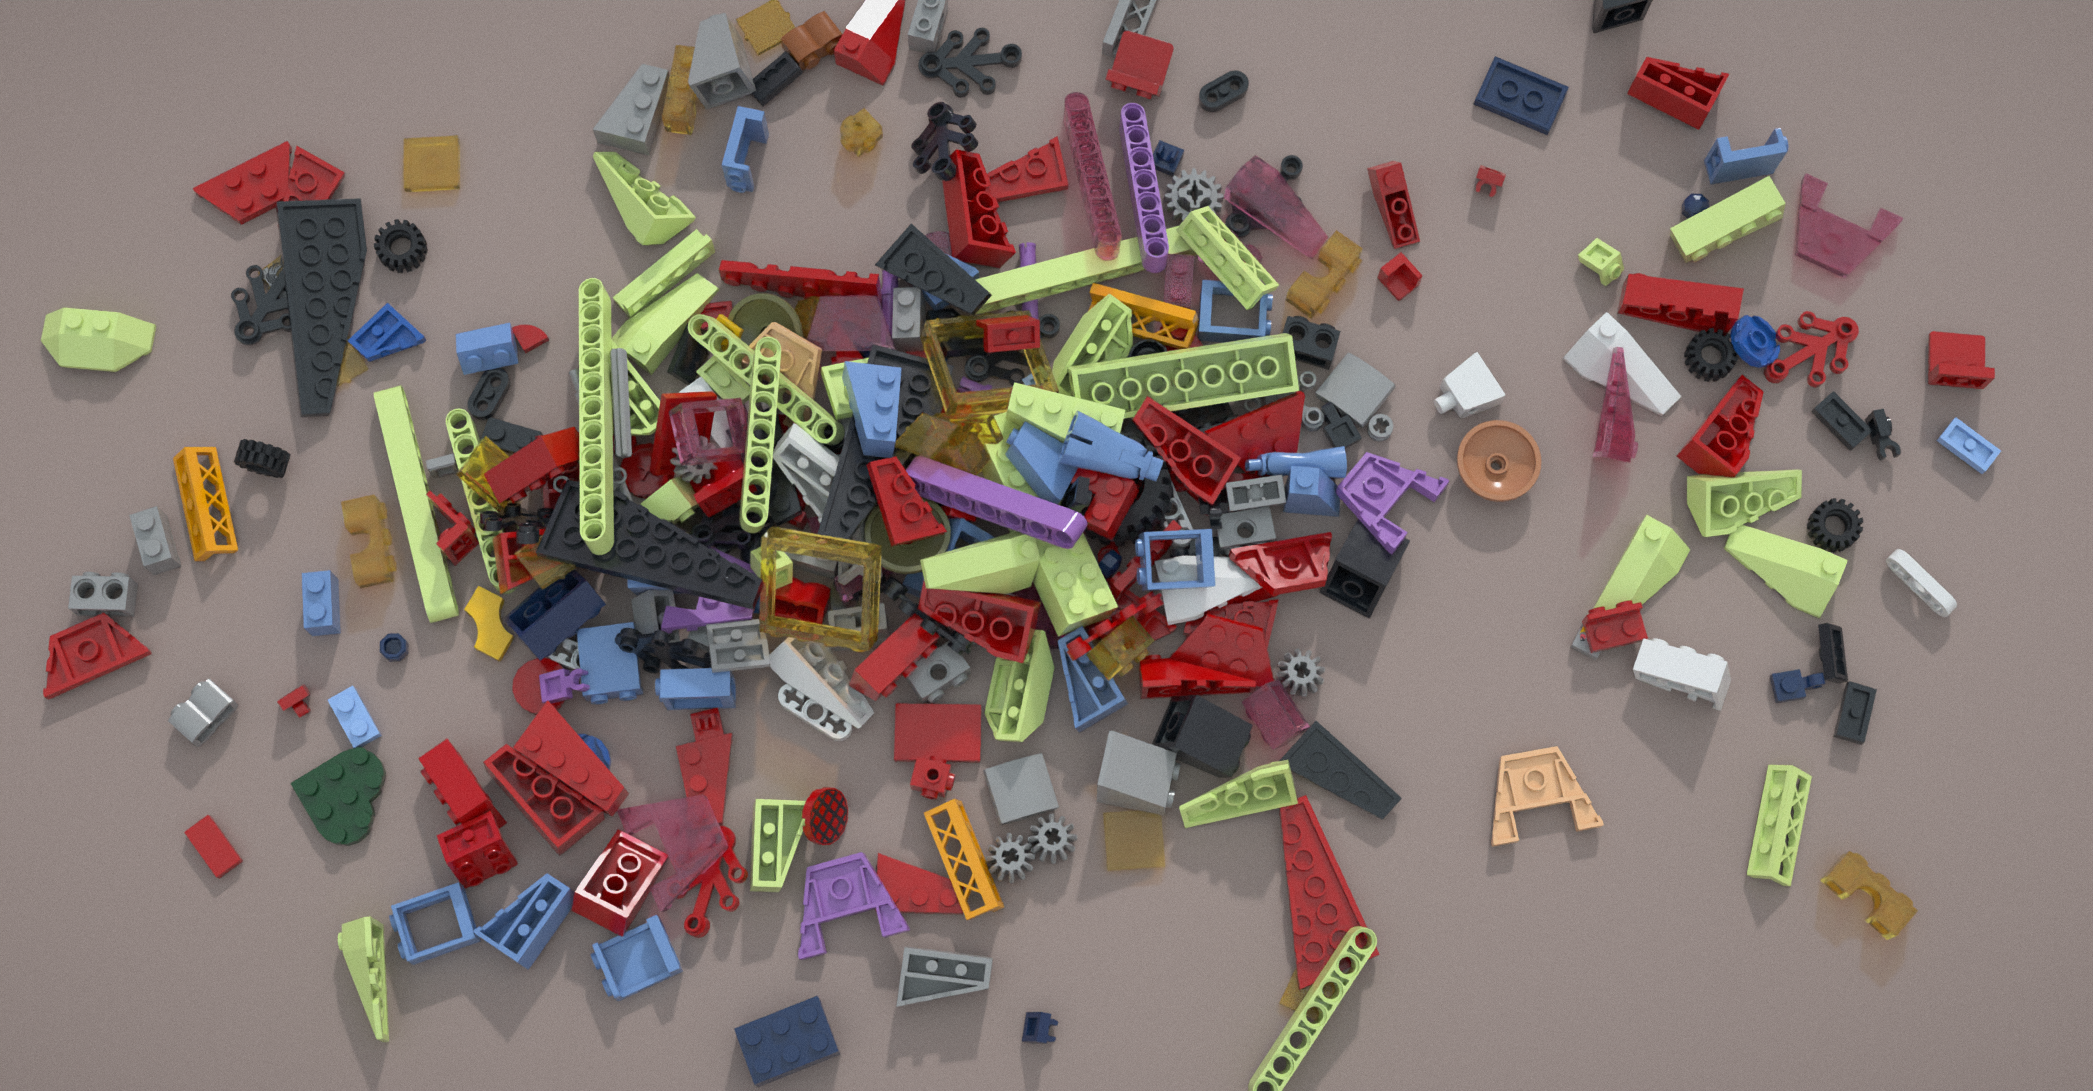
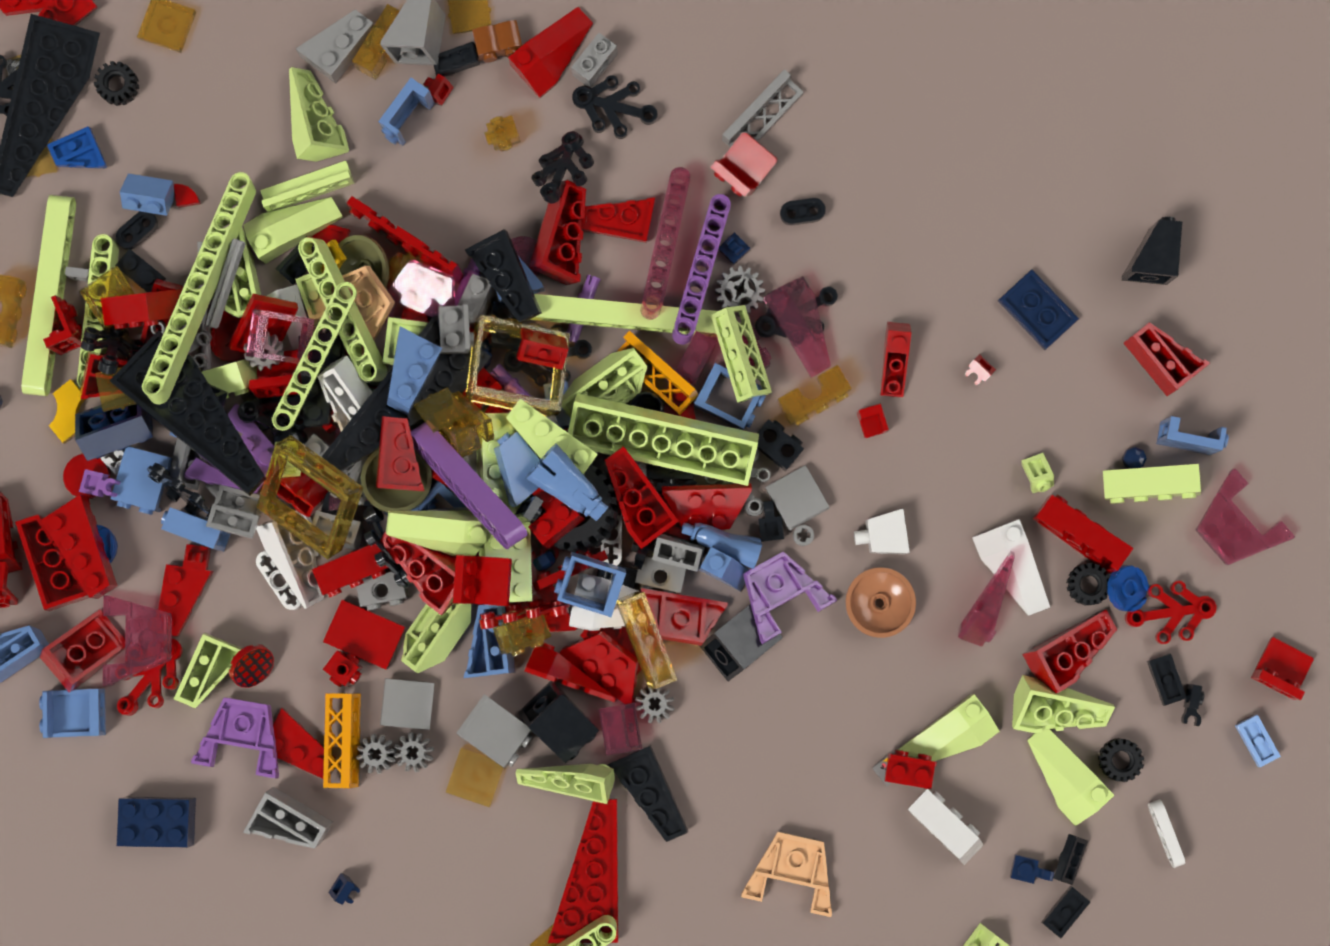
camera: 30 degrees right, 10 degrees up
(773, 113) = (439, 88): none -> red tile
(904, 347) = (454, 329): none -> light grey bracket
(1057, 597) = (482, 580): none -> red bracket
(1263, 599) = (646, 640): none -> clear yellow brick

